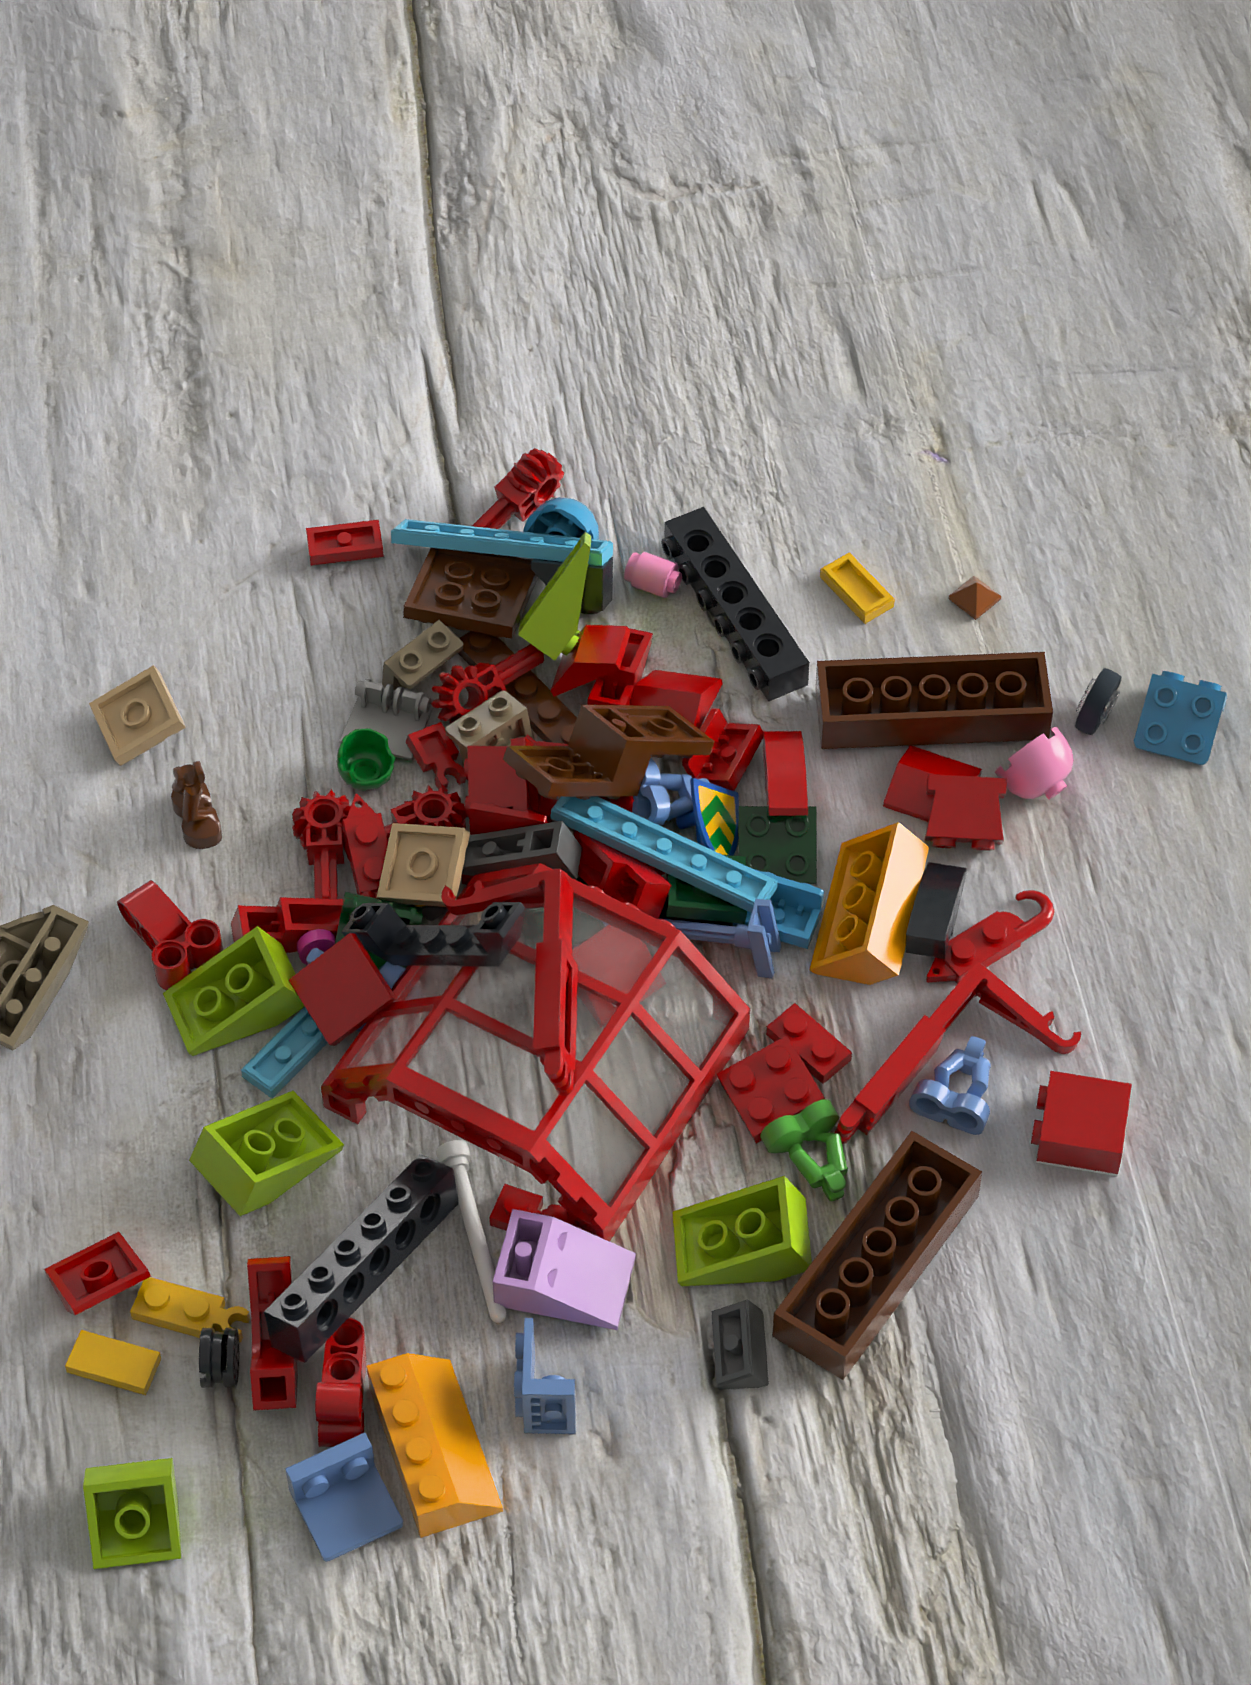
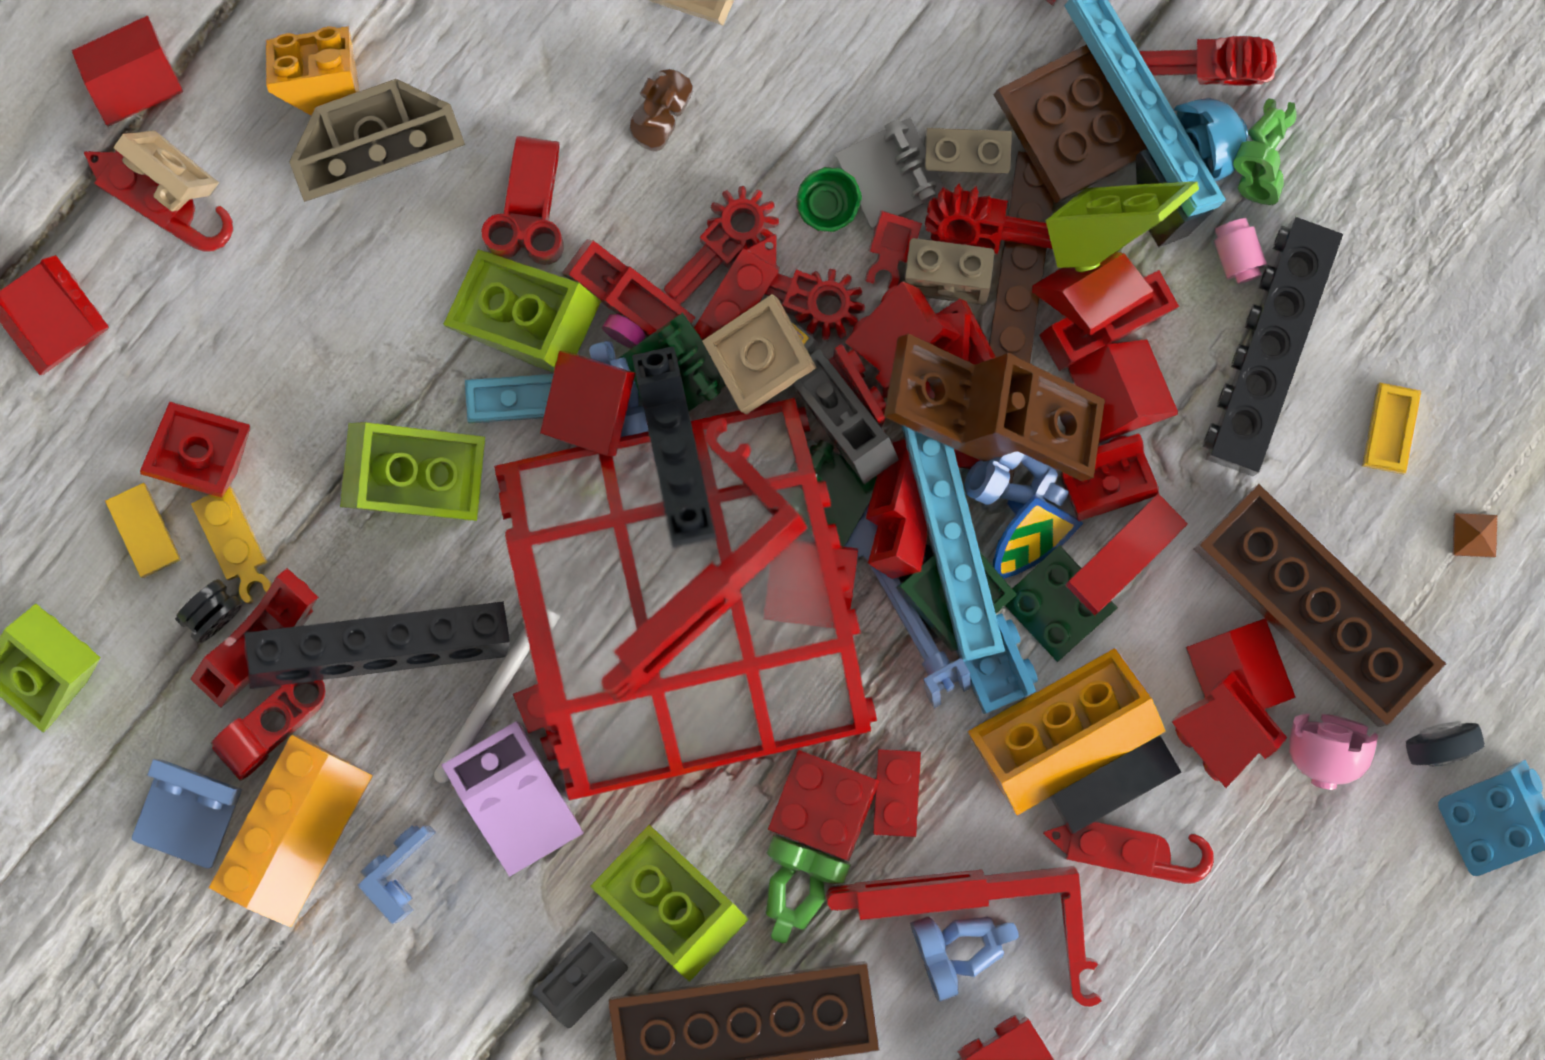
camera: 45 degrees right, 30 degrees up
(610, 515) = (1259, 160): none -> bright green piece

